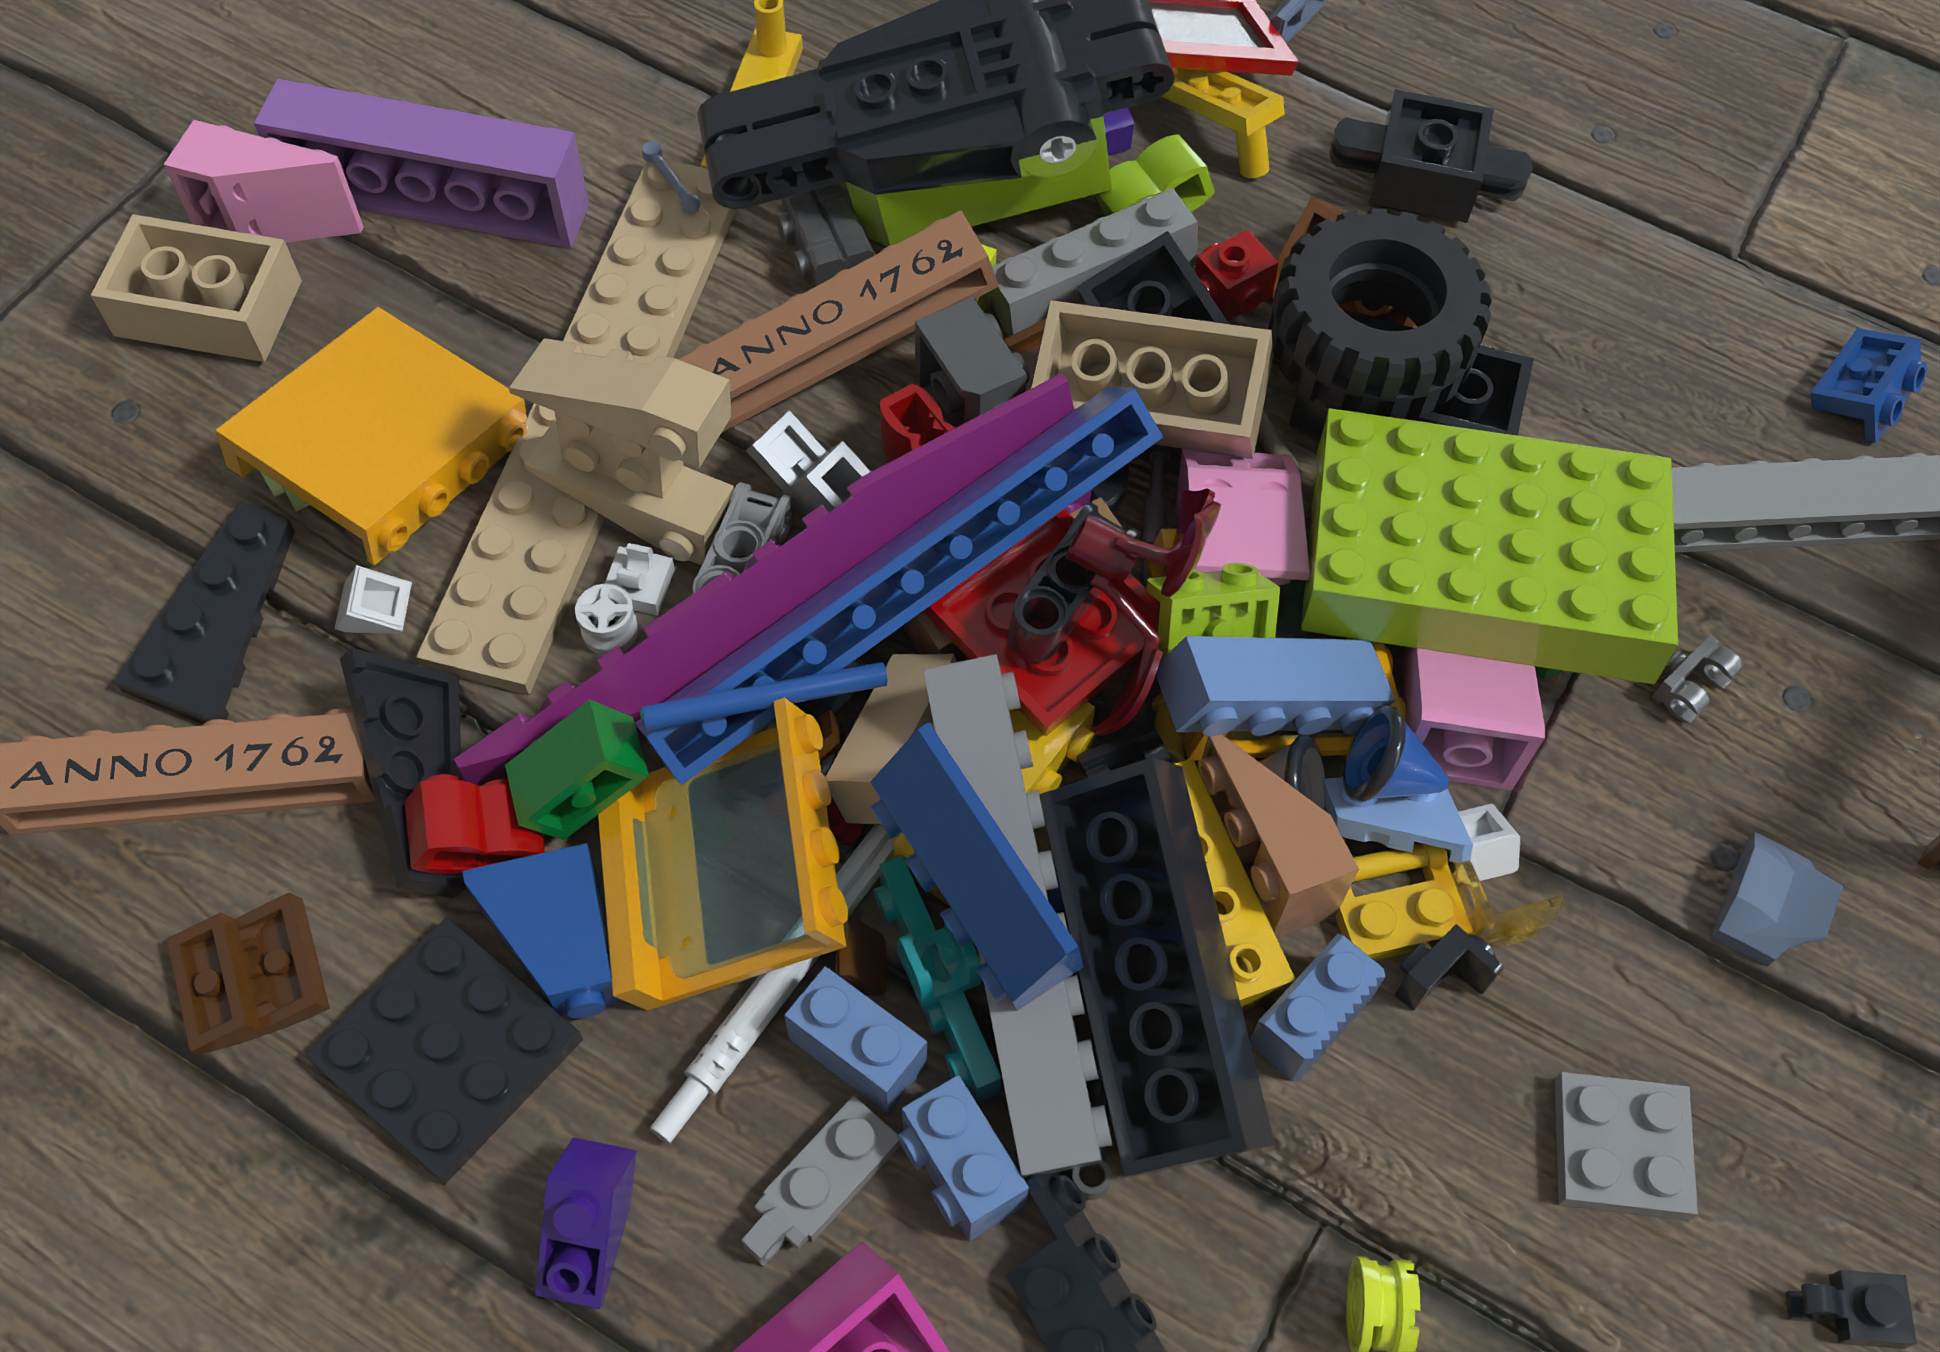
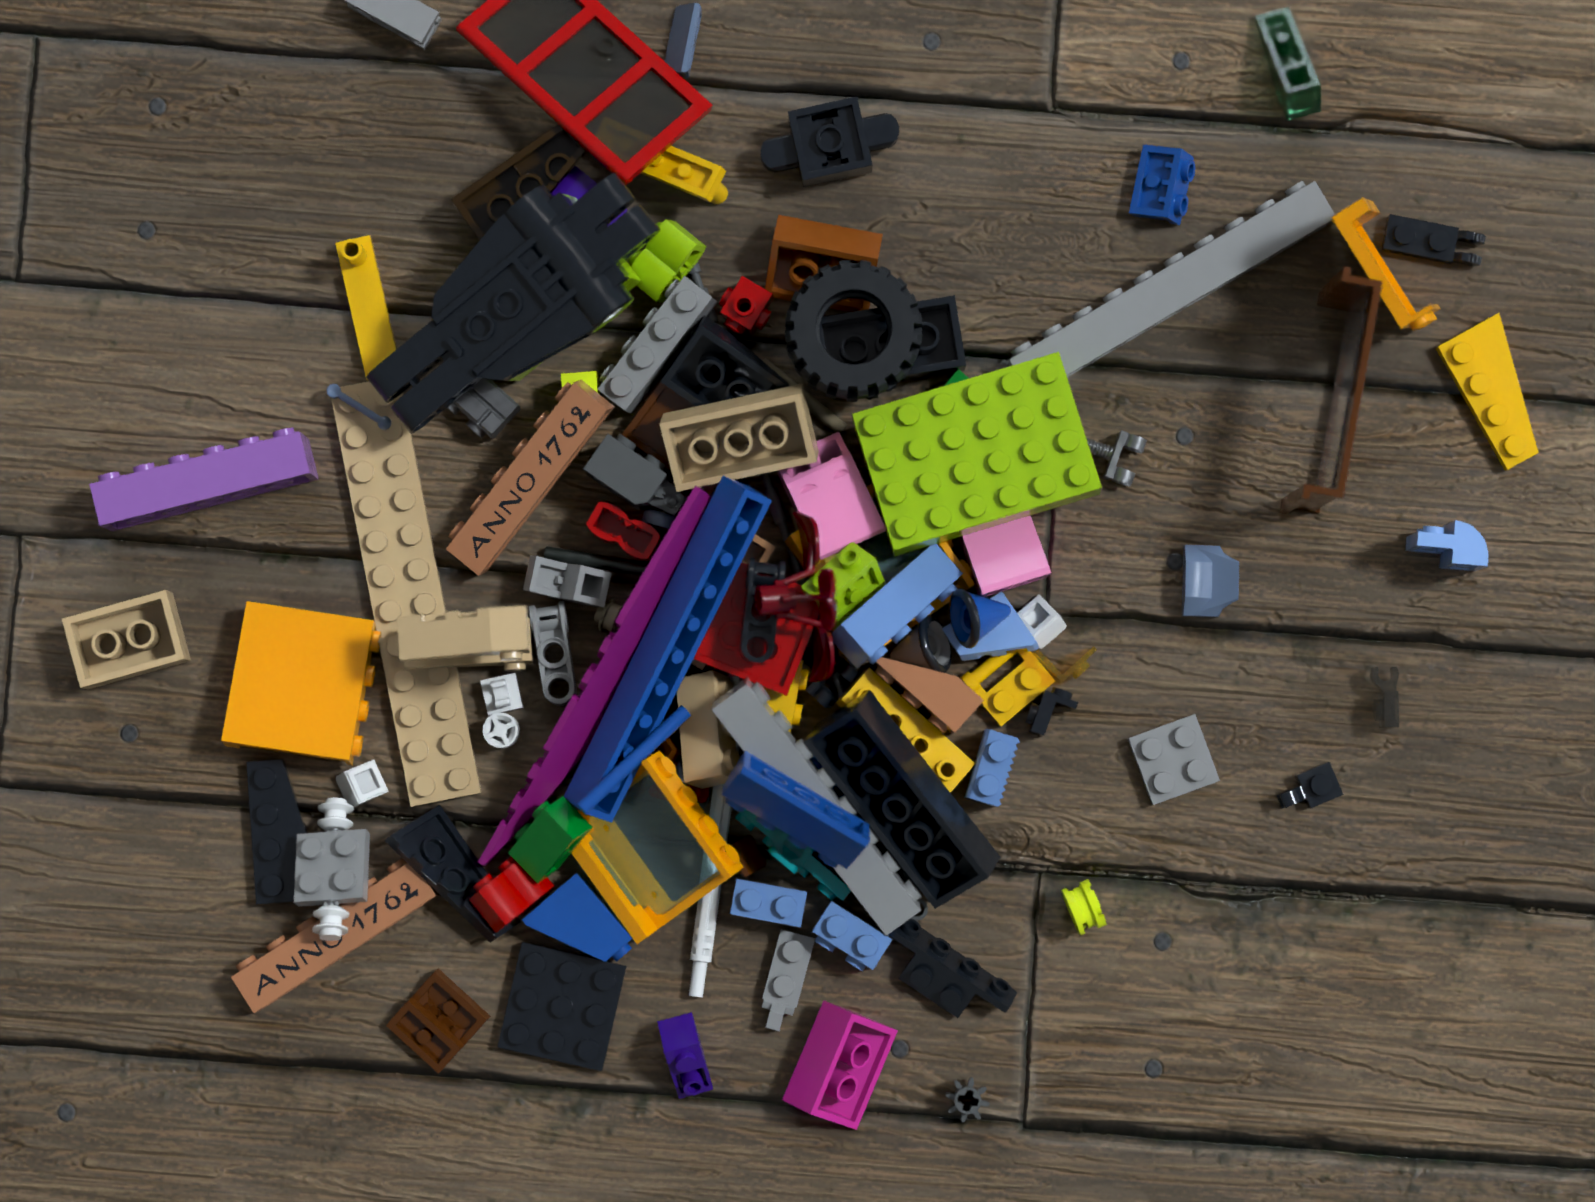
camera: 25 degrees left, 25 degrees up
(240, 669) = (332, 868): none -> light grey plate
(260, 185) = (108, 558): bright pink slope -> none

